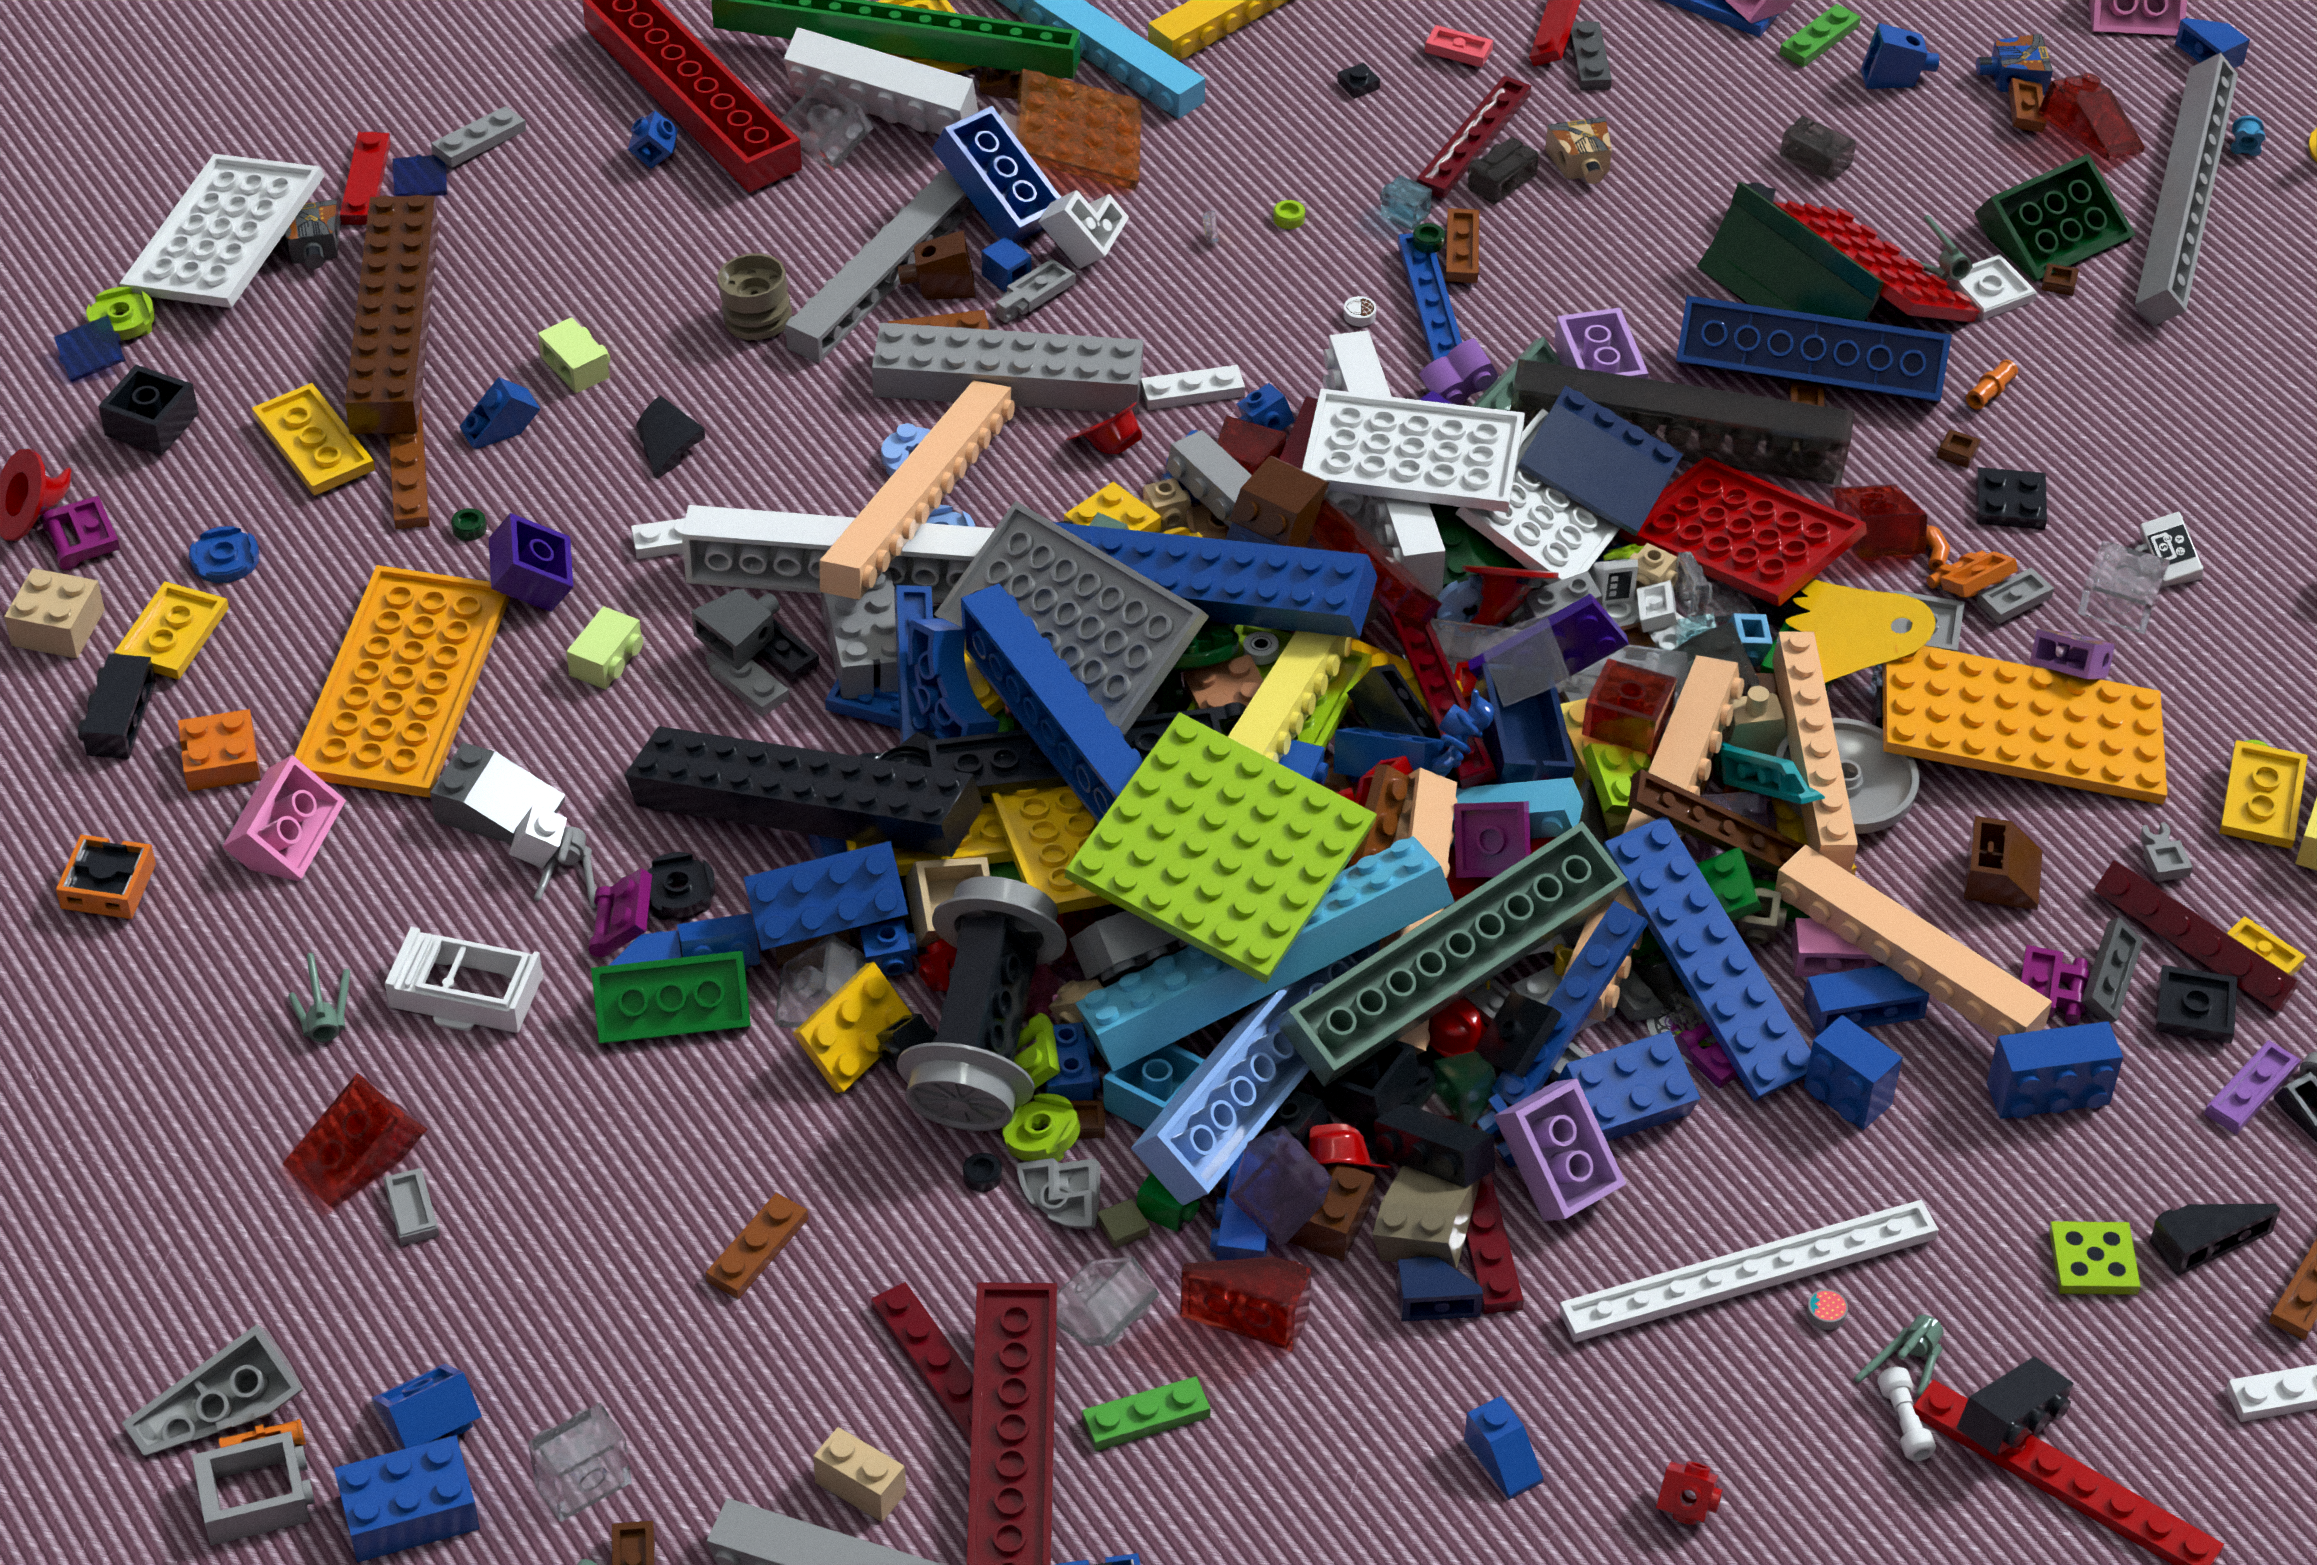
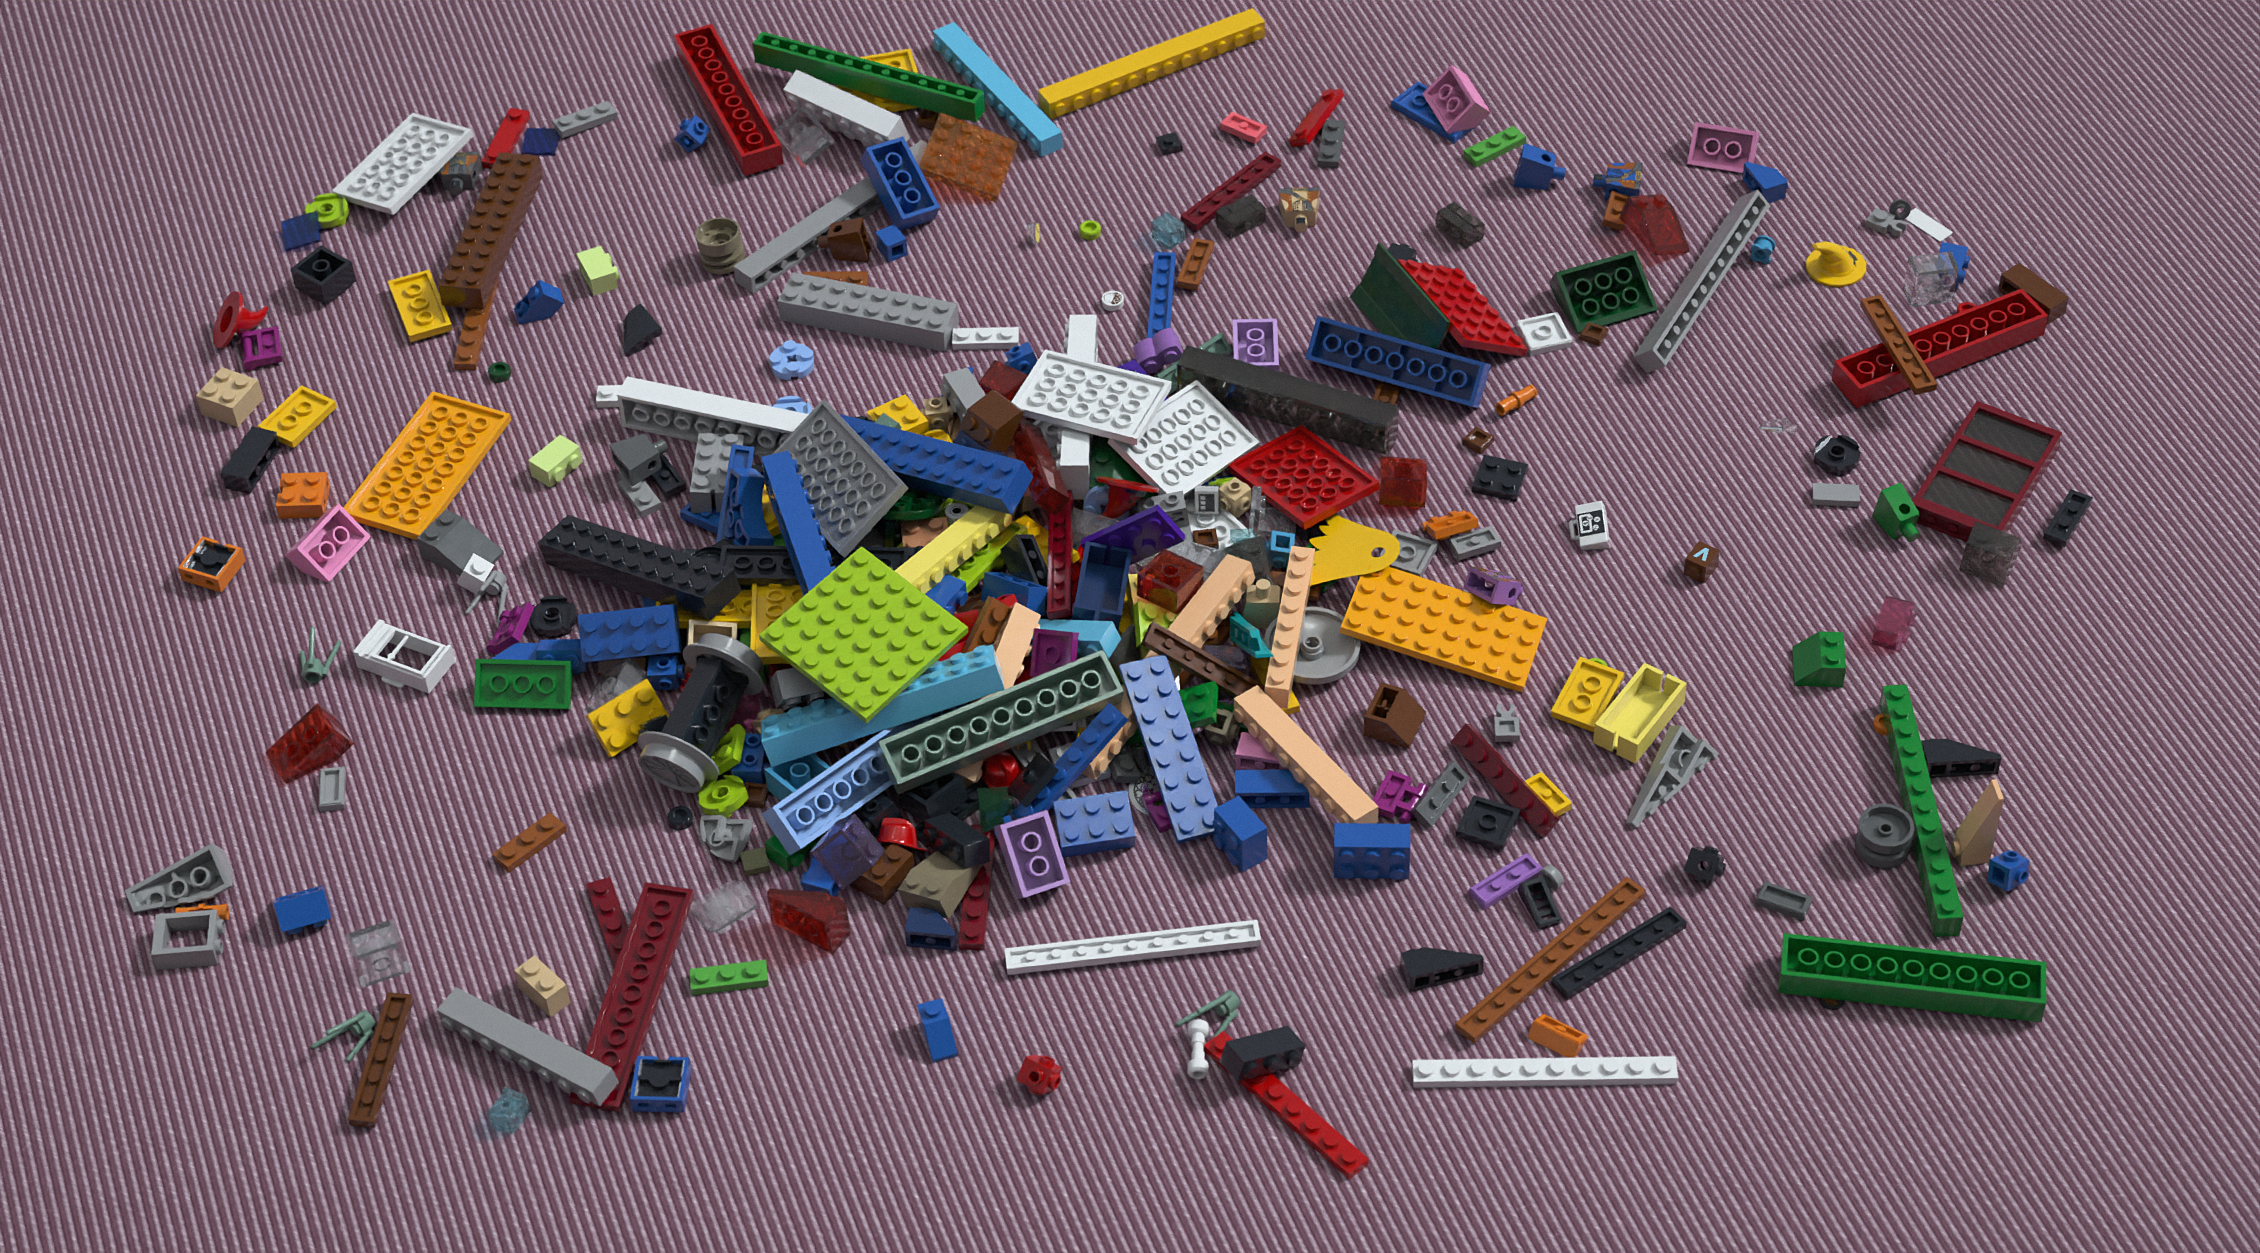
camera: 15 degrees right, 0 degrees up
(224, 554) = (344, 373): blue tile -> none
(407, 1498) = (273, 959): blue brick -> none
(530, 562) = (524, 401): dark purple brick -> none
(915, 490) = (771, 383): light nougat brick -> none
(1034, 289) = (904, 261): light grey hinge -> none
(1084, 228) = (946, 226): white brick -> none
(1114, 433) = (923, 362): red piece -> none
(1428, 238) = (1172, 256): dark green tile -> none
(1459, 727) = (1051, 580): blue animal -> none
(1524, 660) = (1110, 542): clear tile -> none
(1600, 460) = (1221, 419): dark blue slope -> none
(1657, 607) = (1226, 519): white plate -> none
(1827, 1309) = (1174, 978): tile -> none
(1939, 547) = (1438, 504): orange arm -> none
(1952, 260) = (1519, 314): sand green plant -> none
(2094, 1258) = (1357, 972): lime tile -> none
(2123, 587) = (1548, 546): clear brick -> none

